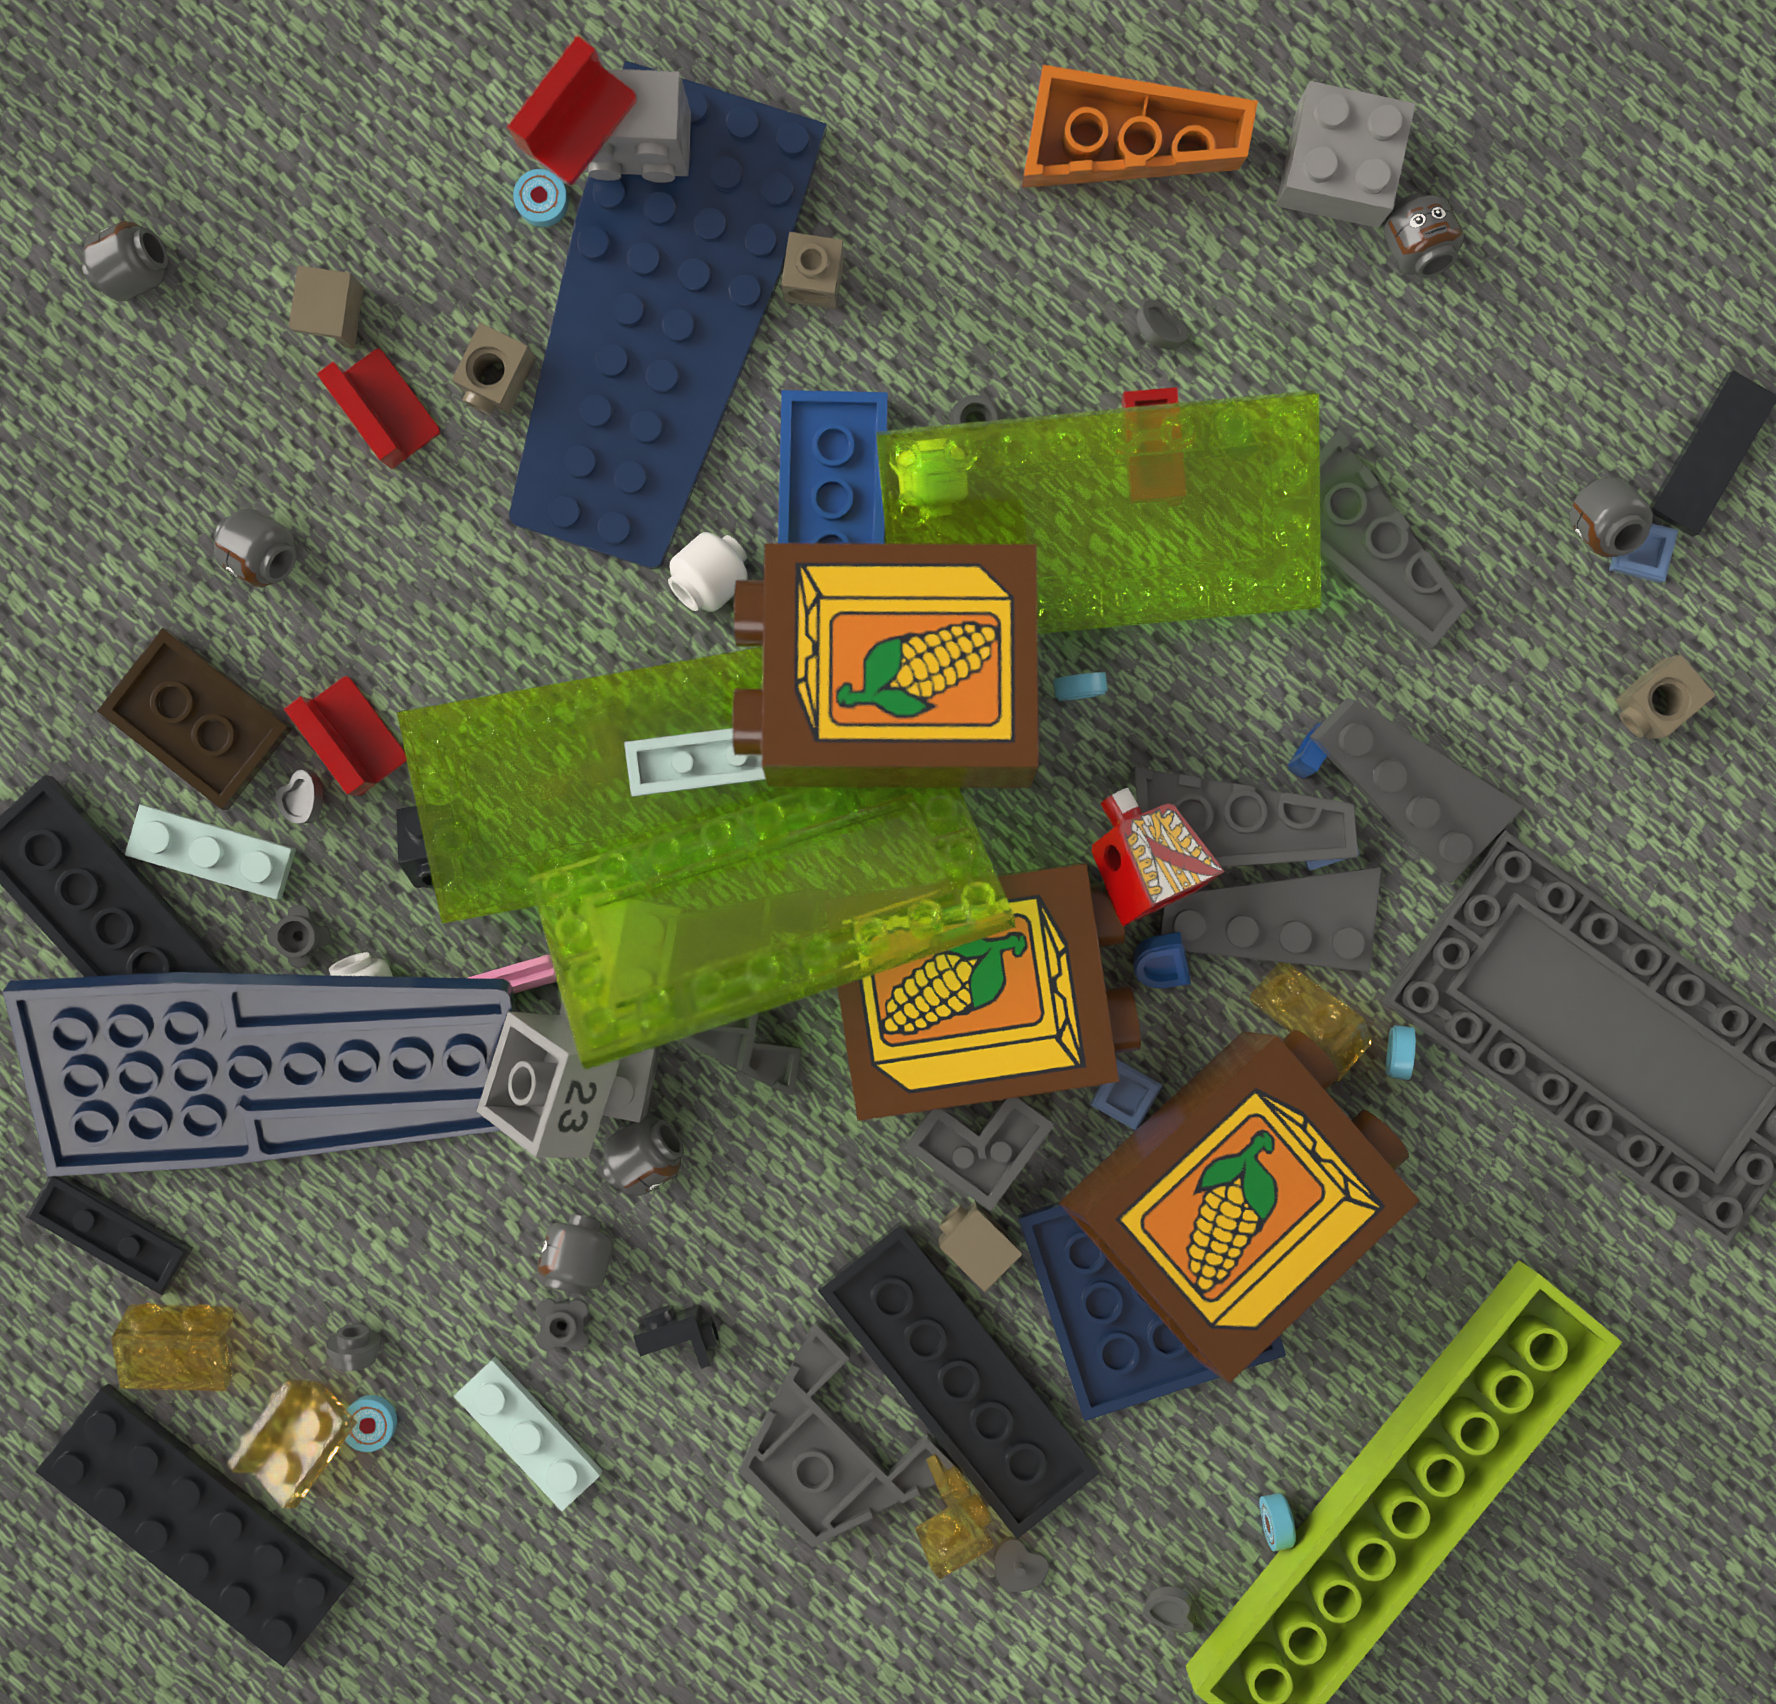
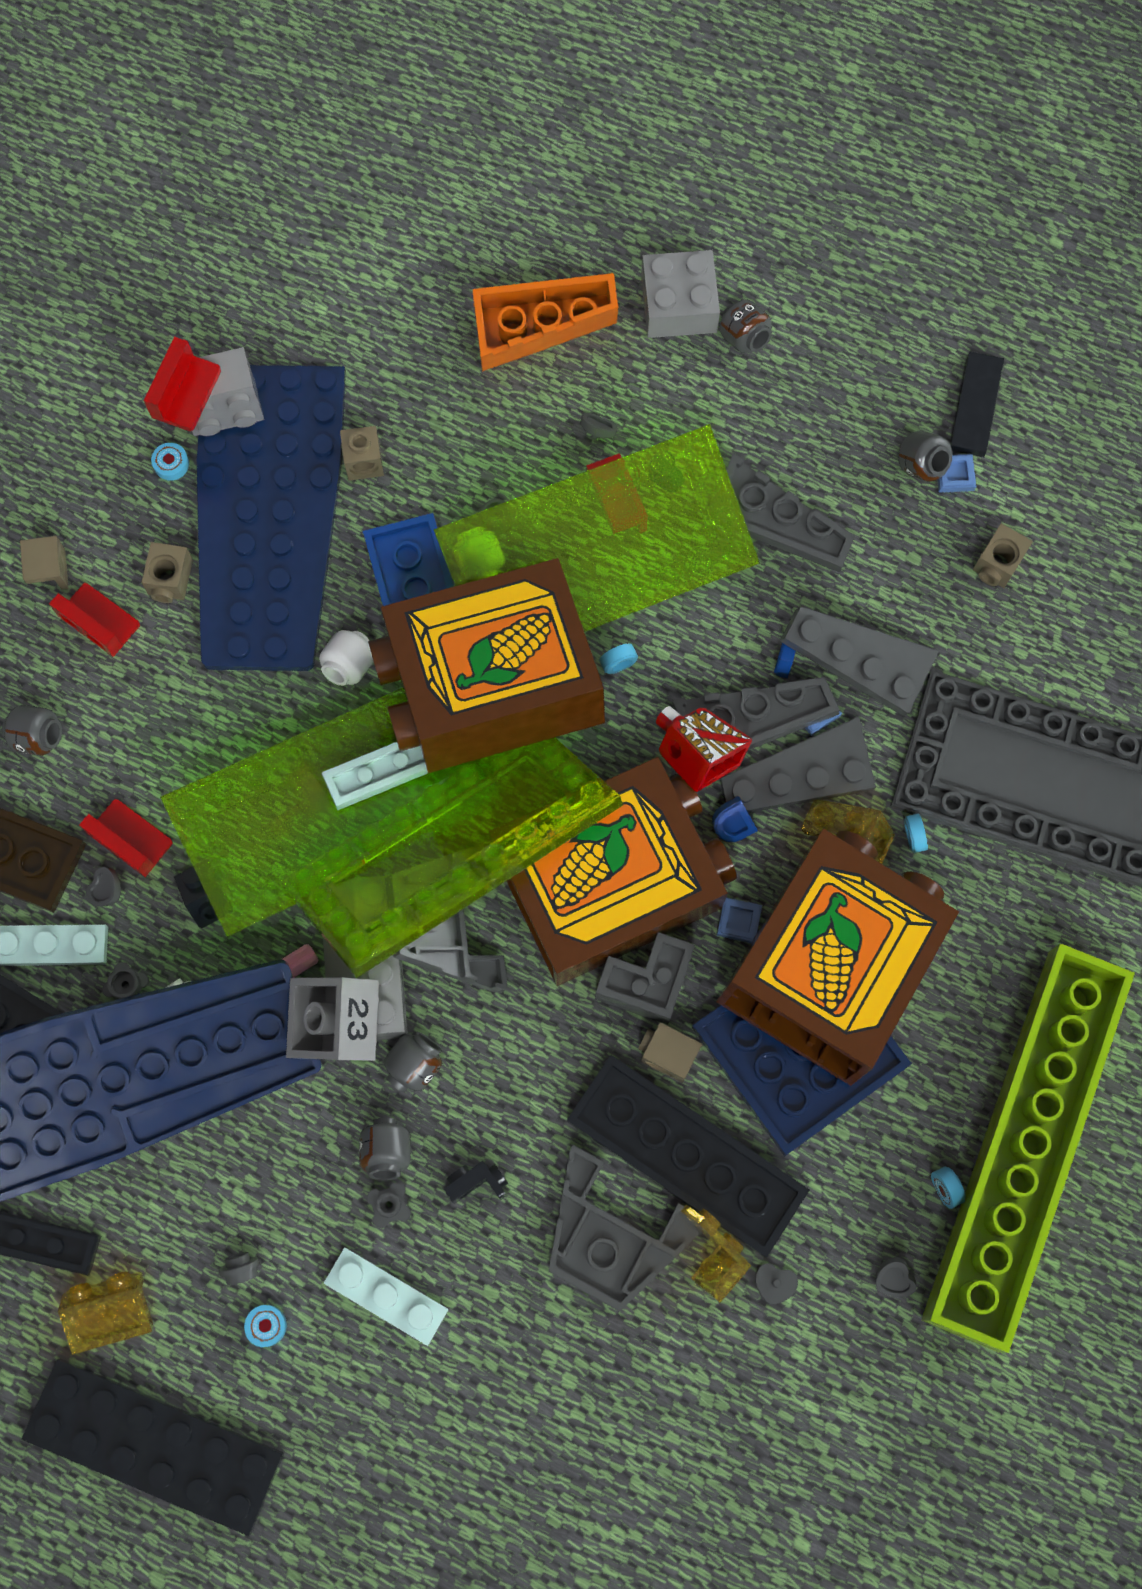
camera: 20 degrees left, 15 degrees down
(293, 1440) = (211, 1352): clear yellow bracket -> none

